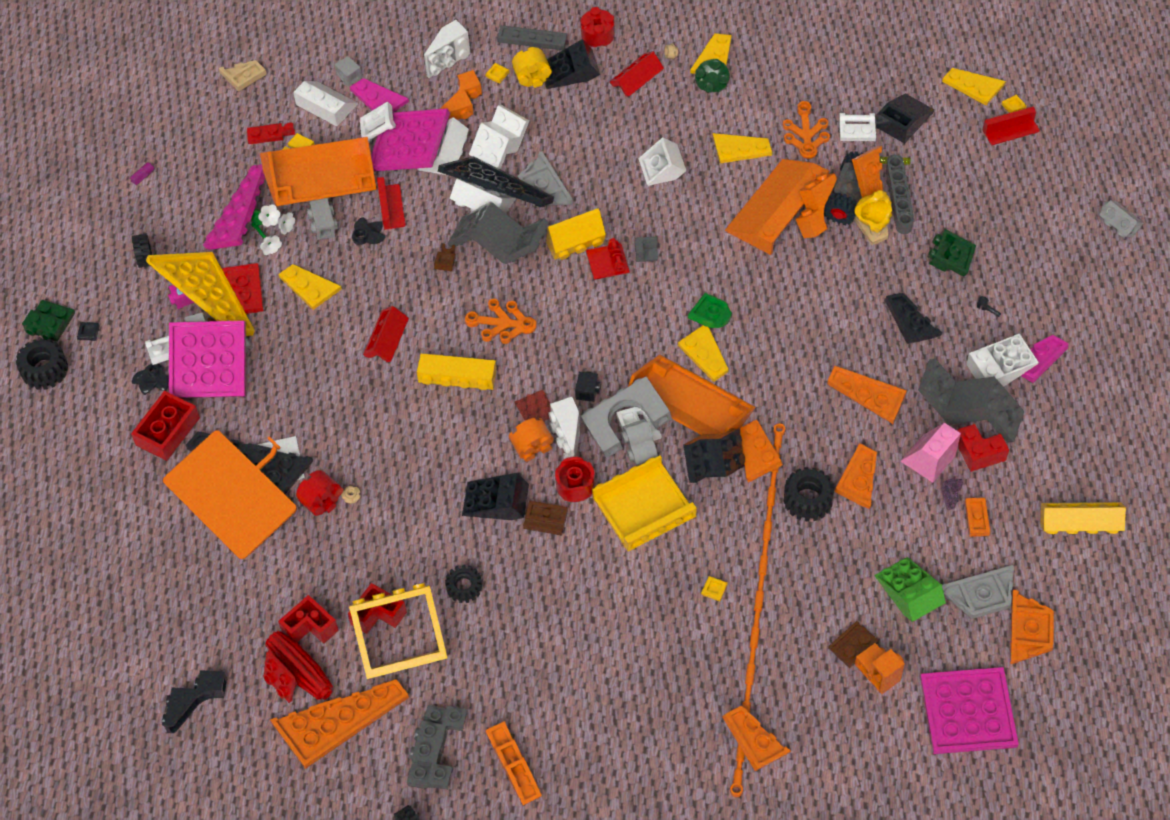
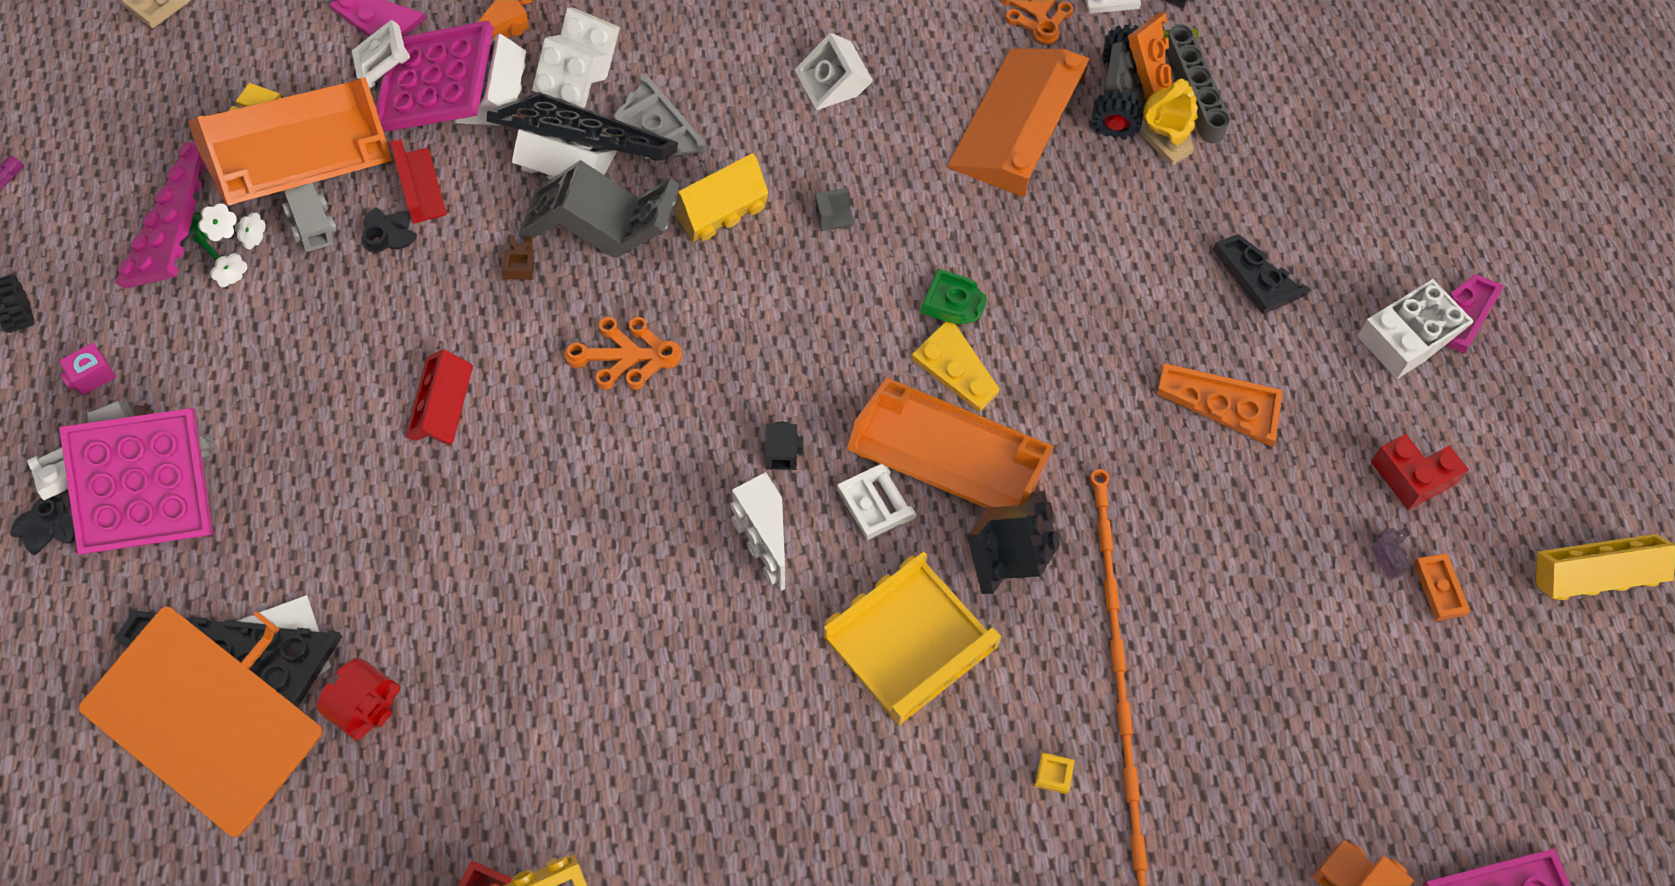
camera: 15 degrees left, 5 degrees up
(165, 425) = (73, 609): red brick -> none
(203, 282) = (119, 347): yellow wing -> none
(246, 286) = (195, 343): red wing -> none
(269, 133) = (208, 88): red plate -> none
(309, 286) = (300, 331): yellow wing -> none
(323, 102) = (290, 31): white slope -> none
(351, 498) = (415, 697): tan plate -> none
(456, 371) = (564, 448): yellow brick -> none
(463, 573) = (627, 809): black tyre -> none
(496, 497) = (664, 662): black slope -> none
(531, 438) = (707, 549): orange brick -> none
(534, 406) = (702, 493): clear red piece -> none
(545, 518) = (752, 686): reddish brown plate -> none
(575, 479) = (807, 605): red brick -> none
(607, 260) = (777, 234): red hinge -> none
(639, 395) = (874, 453): light grey arch -> none
(639, 441) = (886, 532): light grey brick -> none
(738, 148) = (944, 38): yellow wing -> none
(758, 451) = (1080, 525): orange wing -> none
(807, 507) = (1163, 606): black tyre -> none
(815, 196) = (1079, 102): orange arch -> none
(852, 643) = (1301, 841): reddish brown plate -> none
(857, 478) = (1240, 543): orange wing -> none
(911, 588) = (1371, 727): bright green slope -> none
(933, 452) = (1350, 486): bright pink slope -> none
(951, 253) = (1294, 164): dark green plate -> none
(971, 400) = (1391, 395): dark grey bracket -> none
(982, 592) = (1483, 717): light grey wing -> none
(983, 301) = (1359, 234): black hand -> none
(1030, 628) = (1573, 769): orange wing -> none
(1119, 217) = (1524, 86): light grey brick -> none

